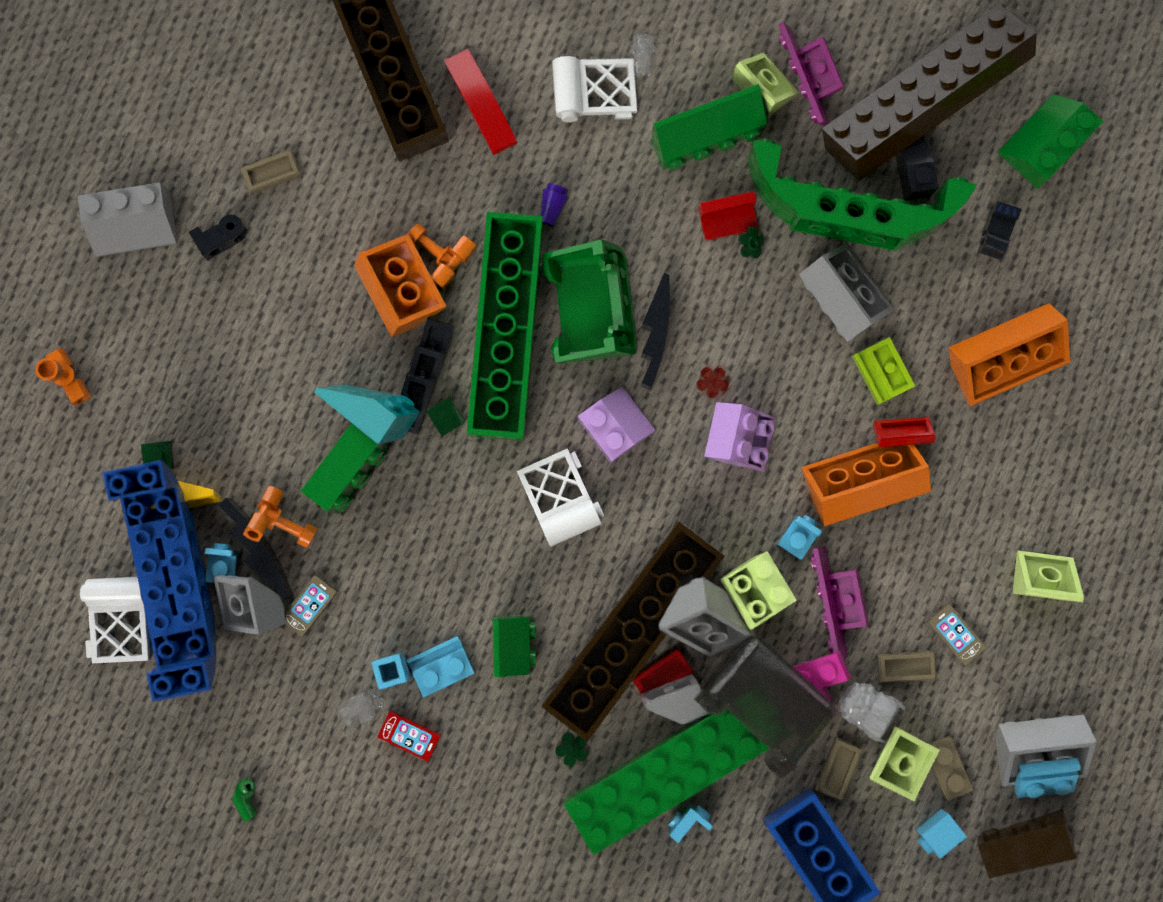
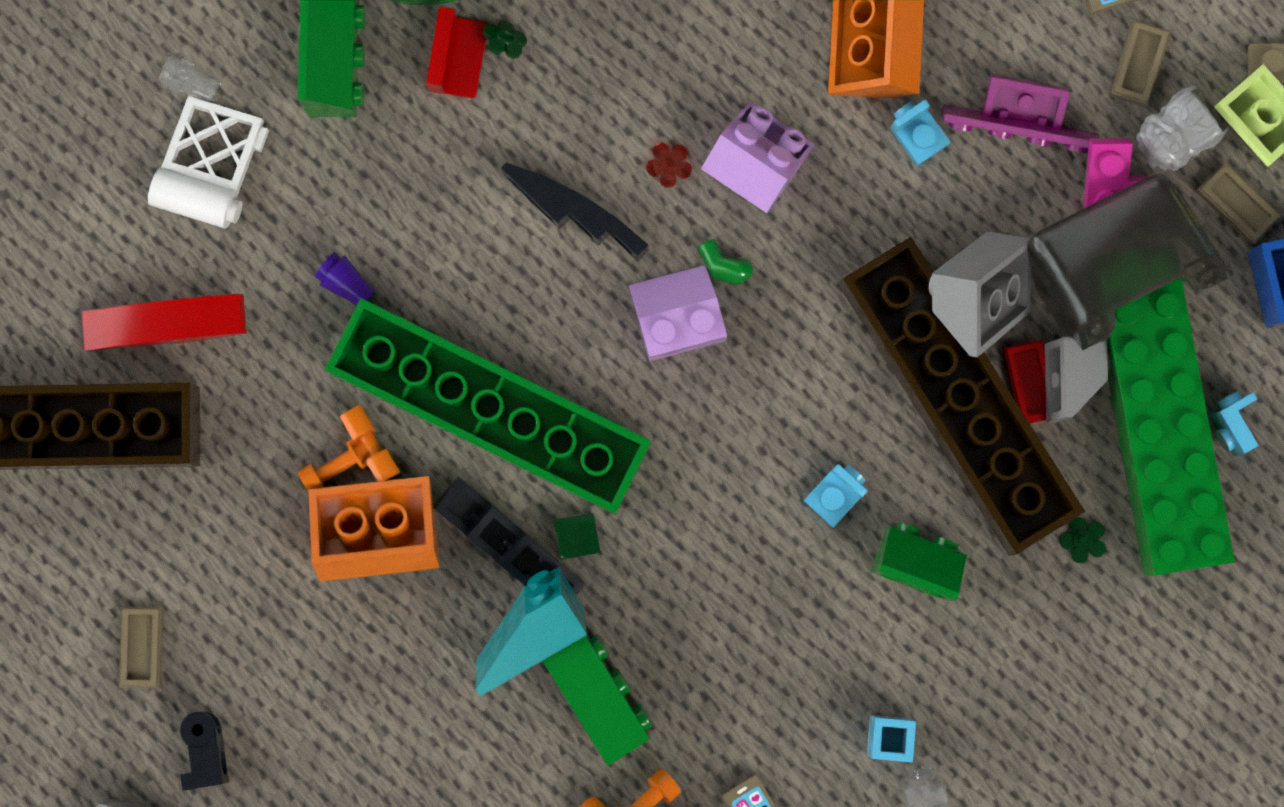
camera: 70 degrees left, 0 degrees up
(409, 735) = (985, 749): tile -> none
(440, 666) = (908, 672): medium azure plate -> none
(538, 574) = (836, 494): none -> medium azure bracket
(569, 518) = (778, 418): white piece -> none
(591, 302) = (501, 281): green windscreen -> none
(657, 443) = (724, 268): none -> green arm
(758, 589) = (969, 211): yellowish green slope -> none

